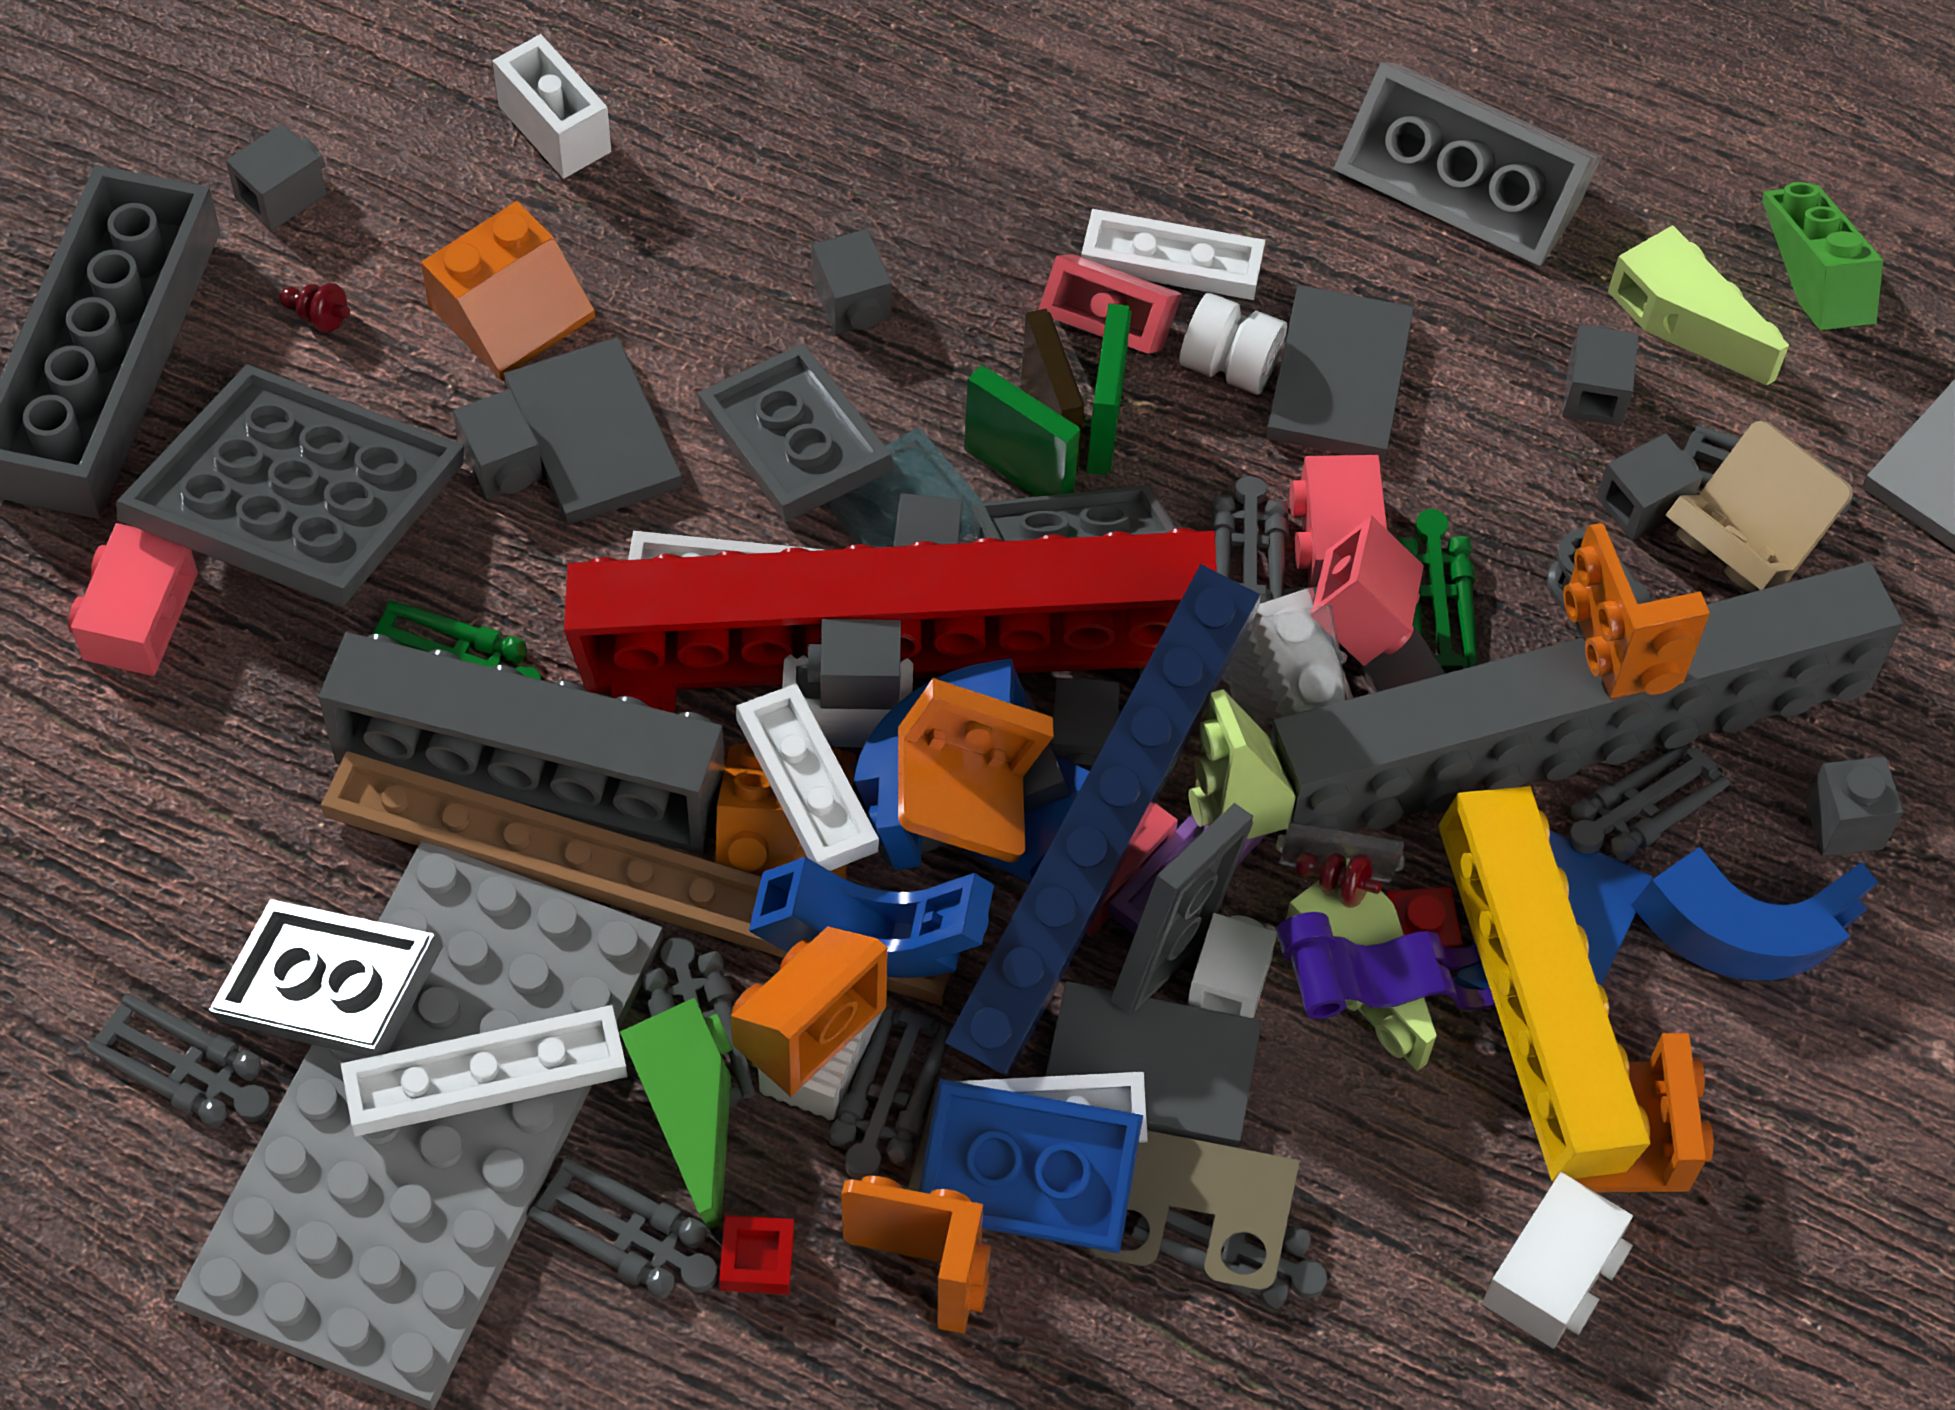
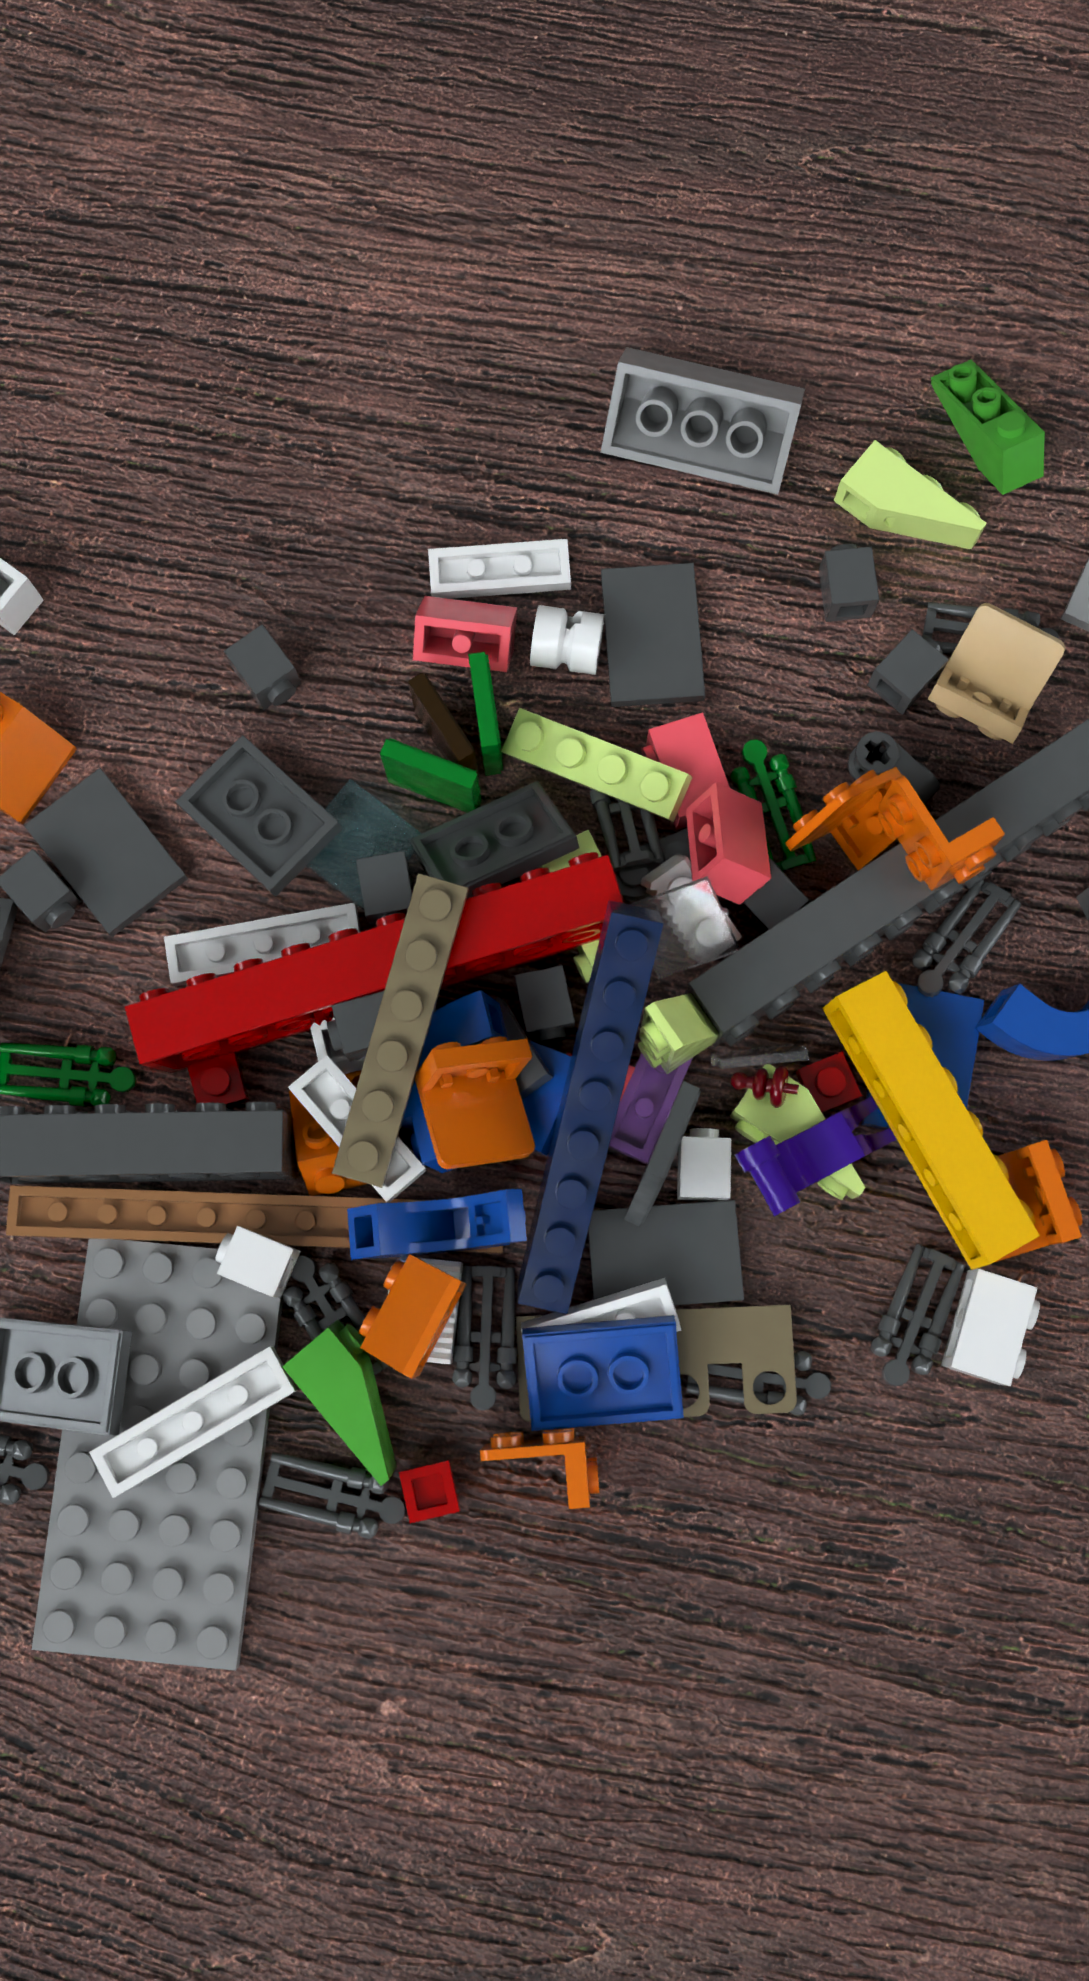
camera: 10 degrees left, 20 degrees up
(629, 907) = (256, 1261): none -> white brick
(898, 664) = (400, 1030): none -> dark tan plate
(1230, 481) = (597, 764): none -> yellowish green plate
(1419, 1280) = (896, 1371): none -> dark grey piece
(1518, 602) = (850, 818): none -> orange bracket

